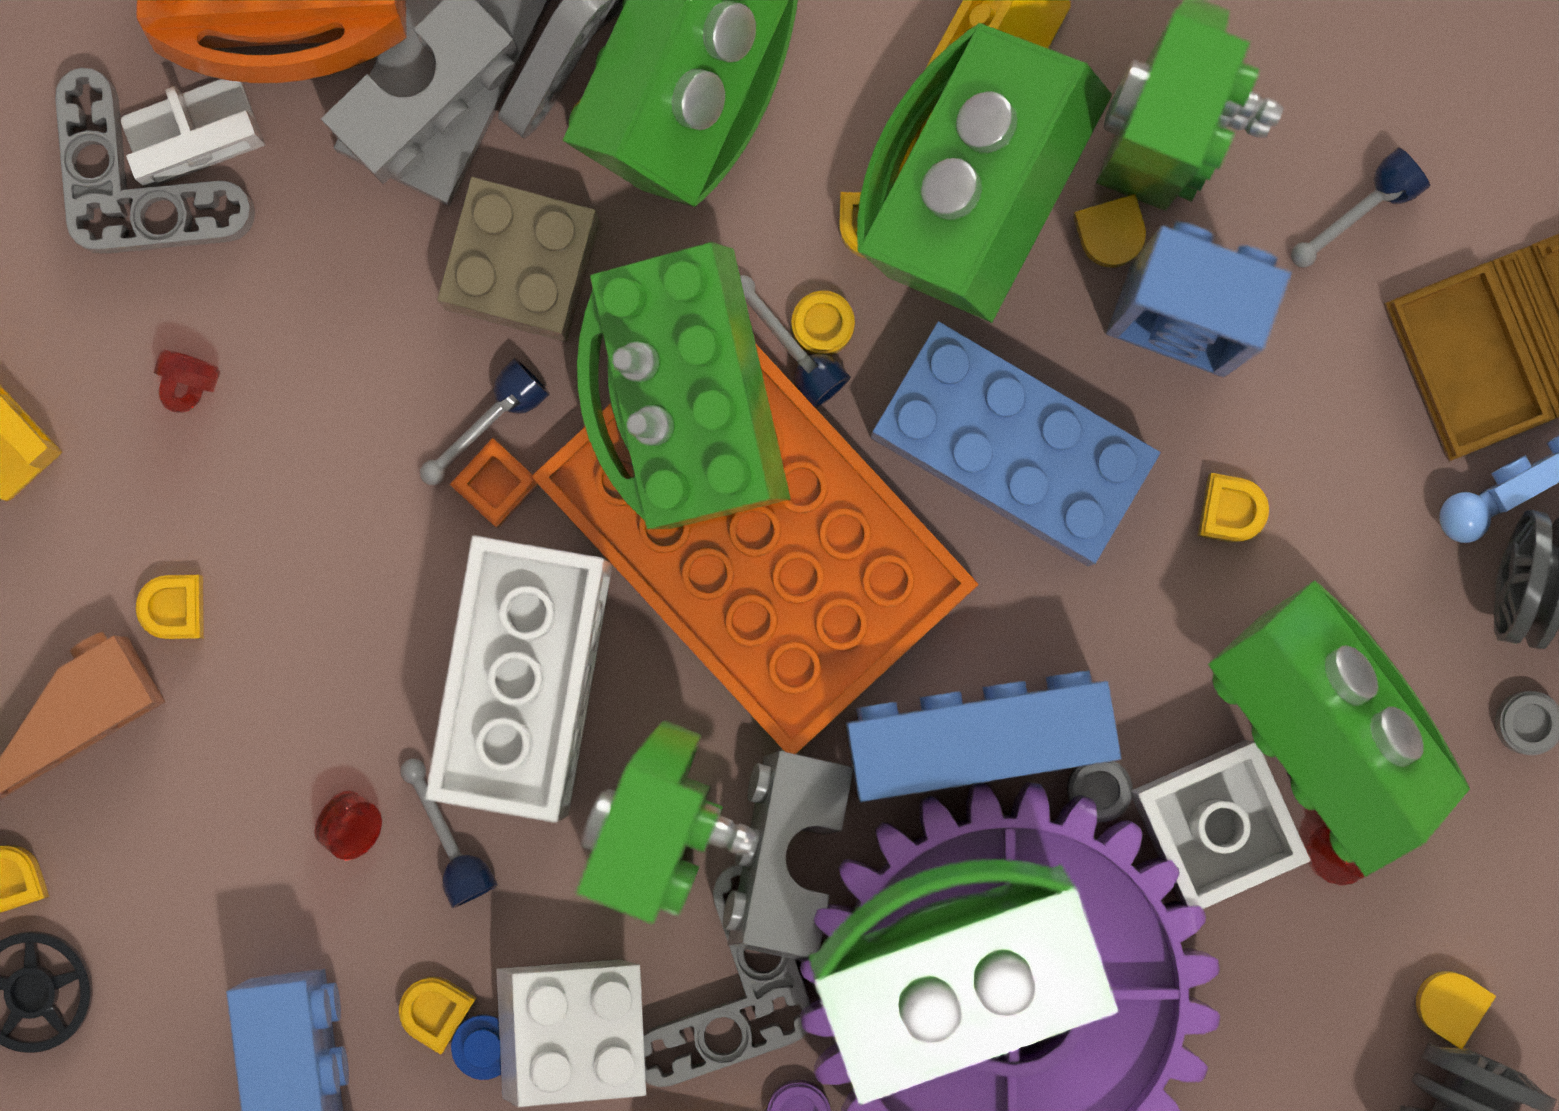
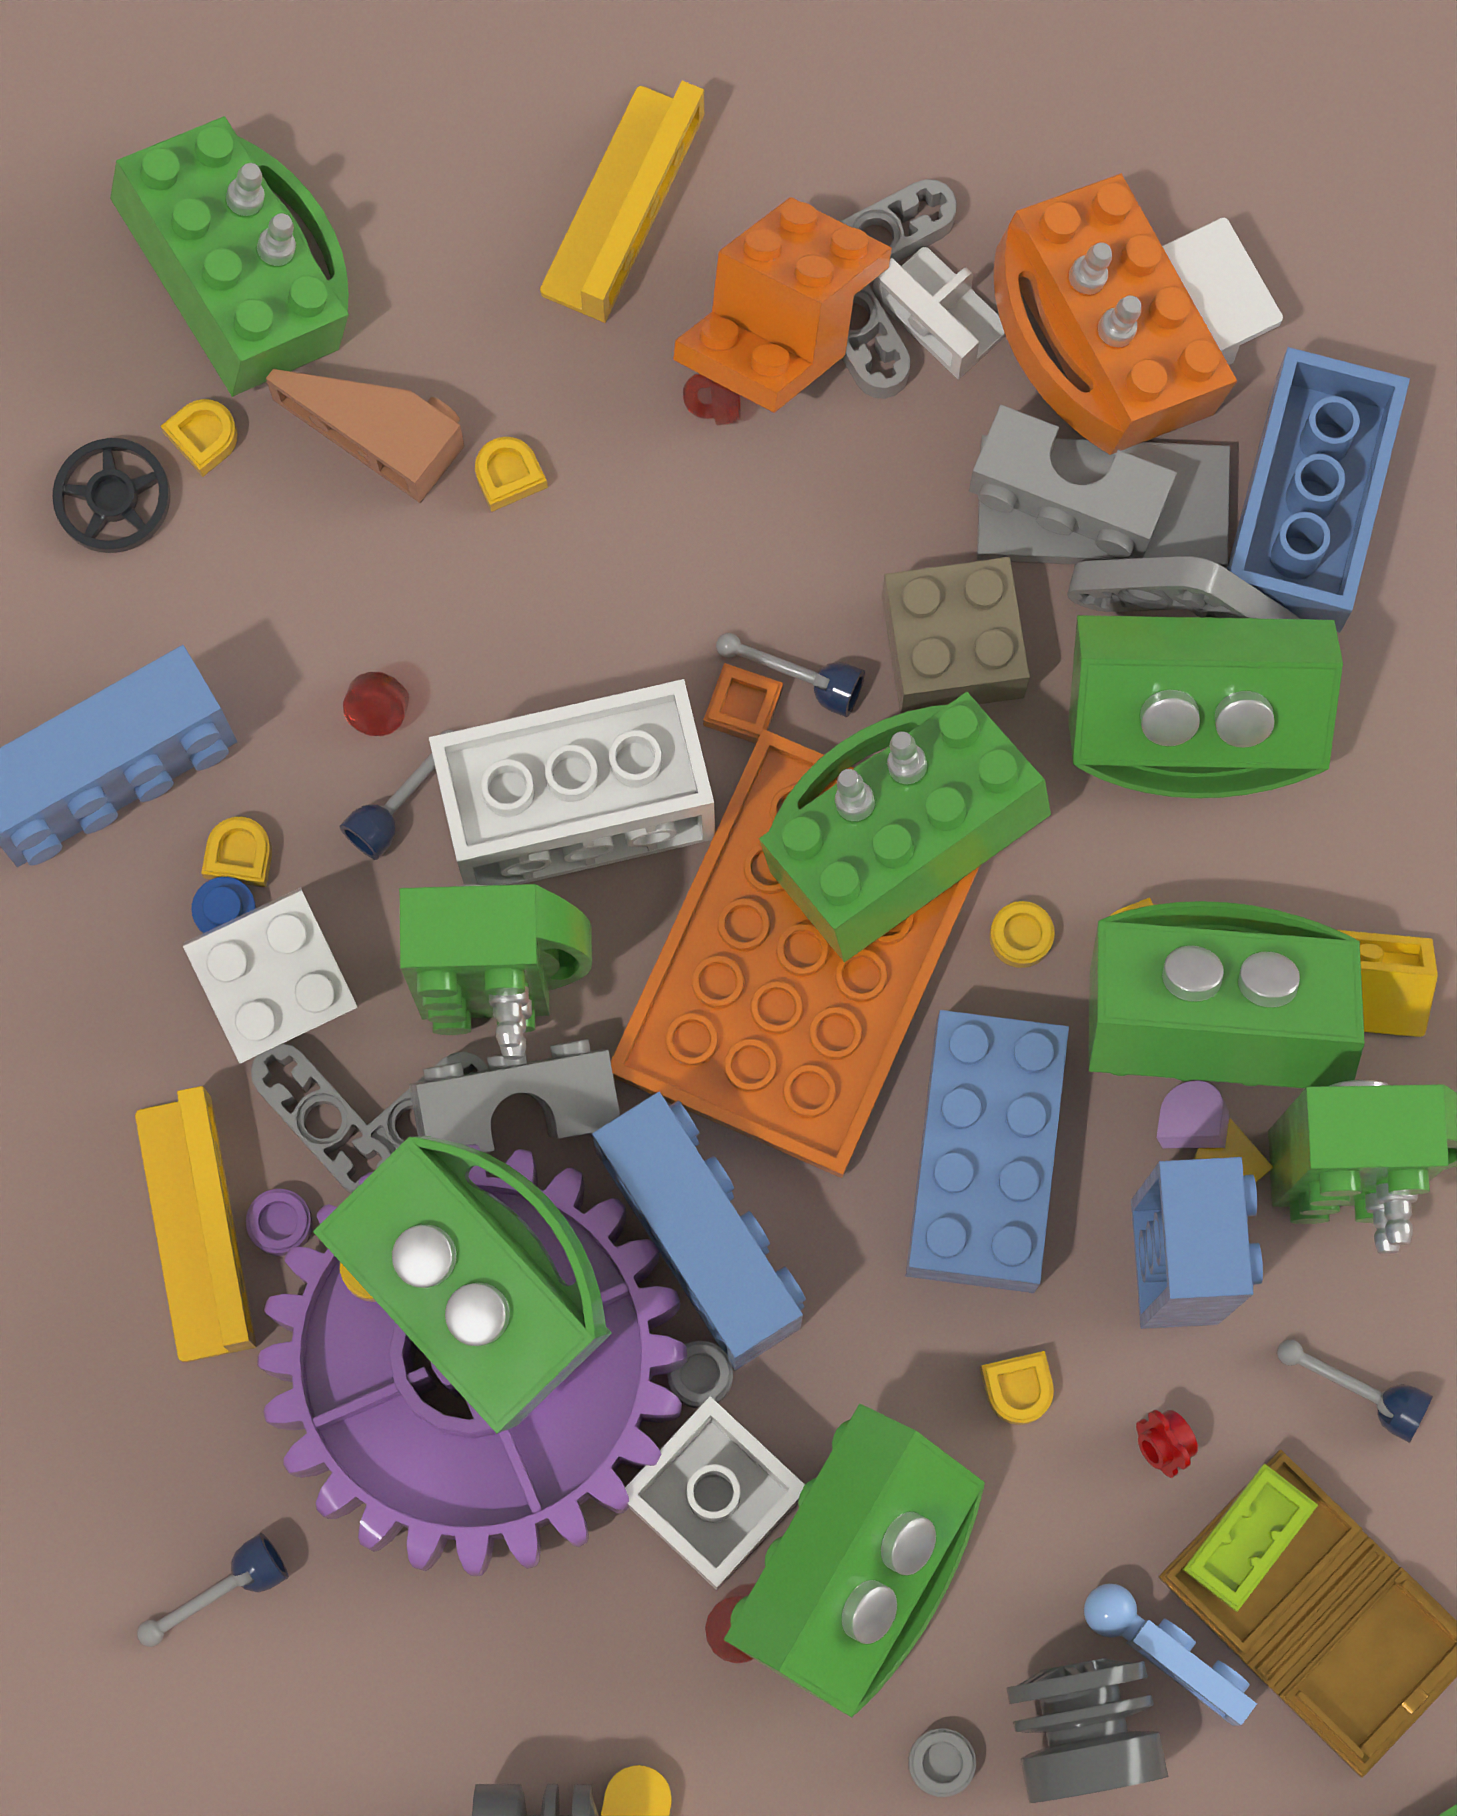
camera: 65 degrees right, 10 degrees down
(127, 279) = (782, 304): none -> orange bracket
(817, 375) = (970, 947): hinge -> none
(1063, 246) = (1193, 1117): none -> lavender tile
(1339, 400) = (1166, 1441): none -> red plate
(1458, 366) = (1250, 1537): none -> lime plate

